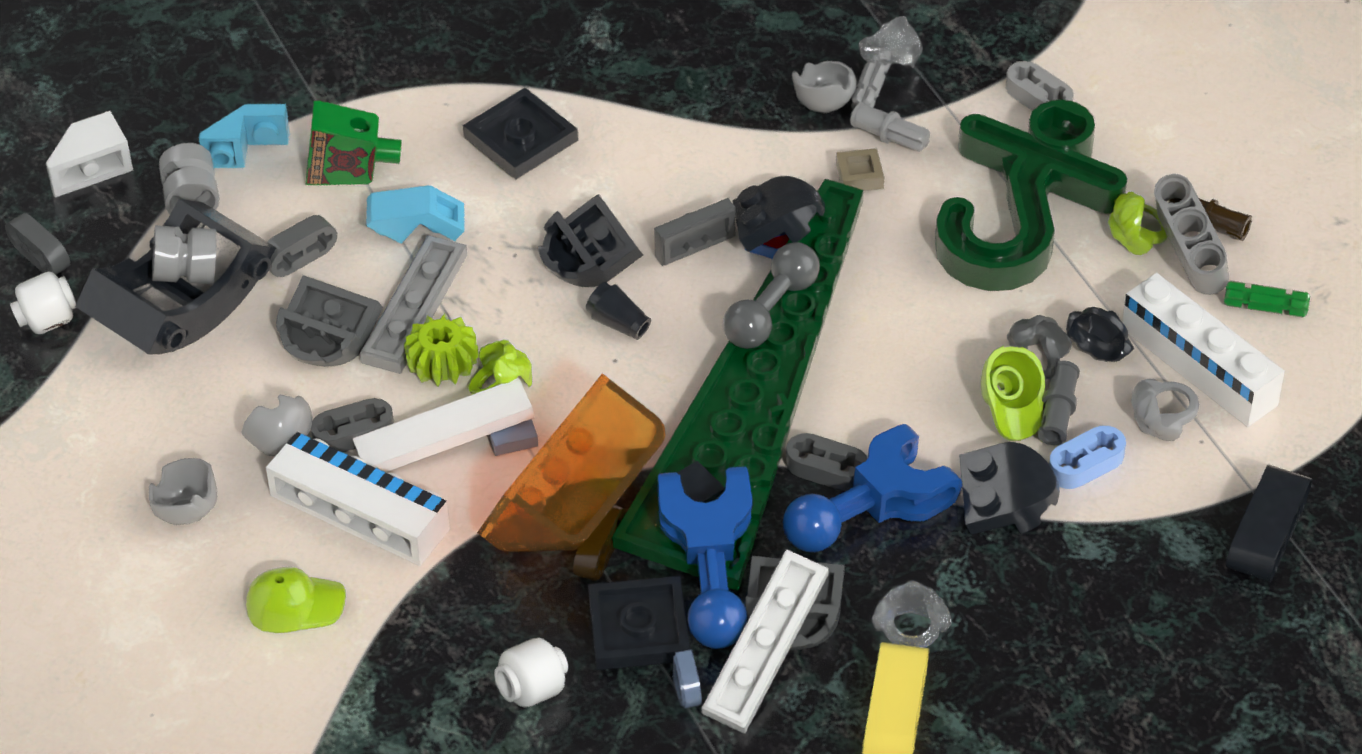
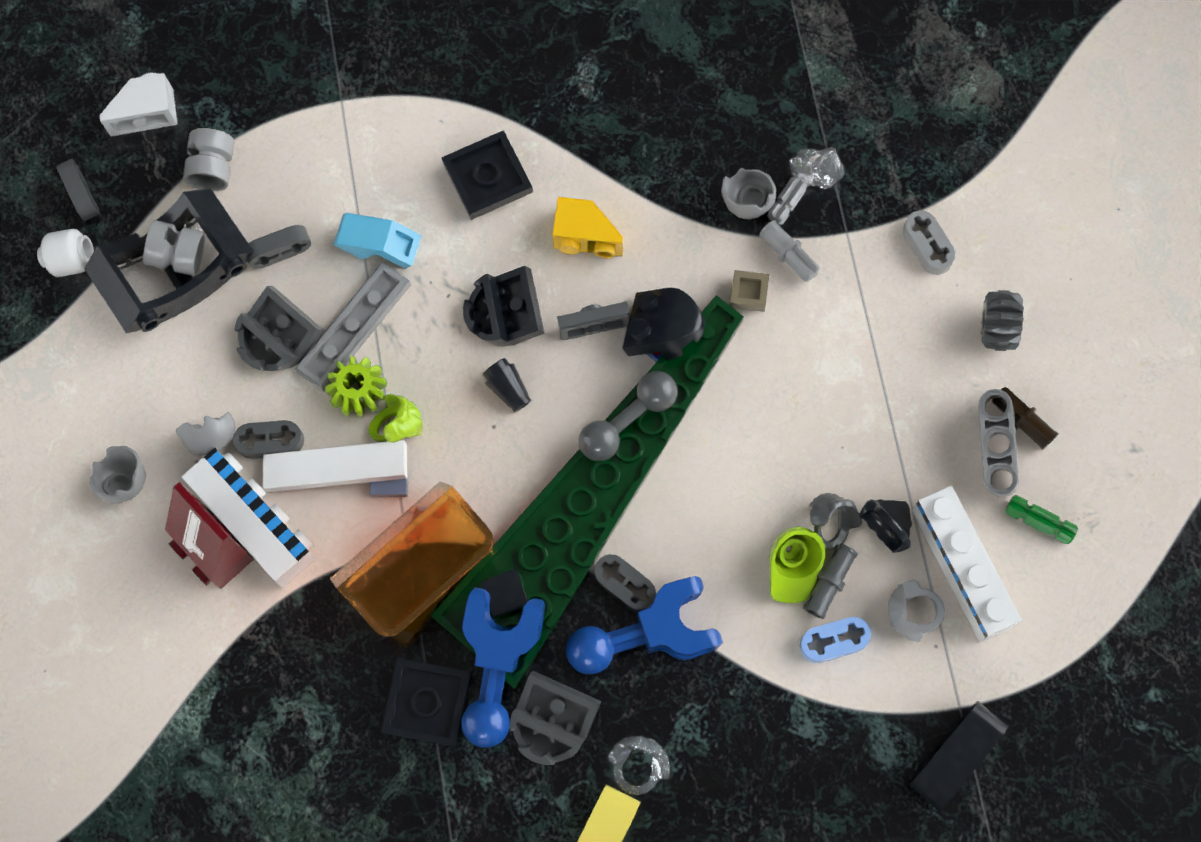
camera: 20 degrees right, 25 degrees up
(246, 126) = (255, 120): medium azure slope -> none
(292, 601) = (183, 601): lime cap -> none
(318, 507) = (204, 539): none -> dark red slope
(346, 146) = (340, 158): green torso -> none
(531, 672) = (328, 730): white head -> none
(654, 154) = (585, 228): none -> yellow slope
(686, 679) = (444, 774): sand blue tile -> none
(765, 641) = (515, 757): white tile -> none
(1006, 487) = (758, 655): black slope -> none
(1044, 160) = (893, 328): dark green piece -> none
(1126, 224) = (951, 409): lime piece -> none
(1148, 129) = (1002, 320): none -> dark grey gear

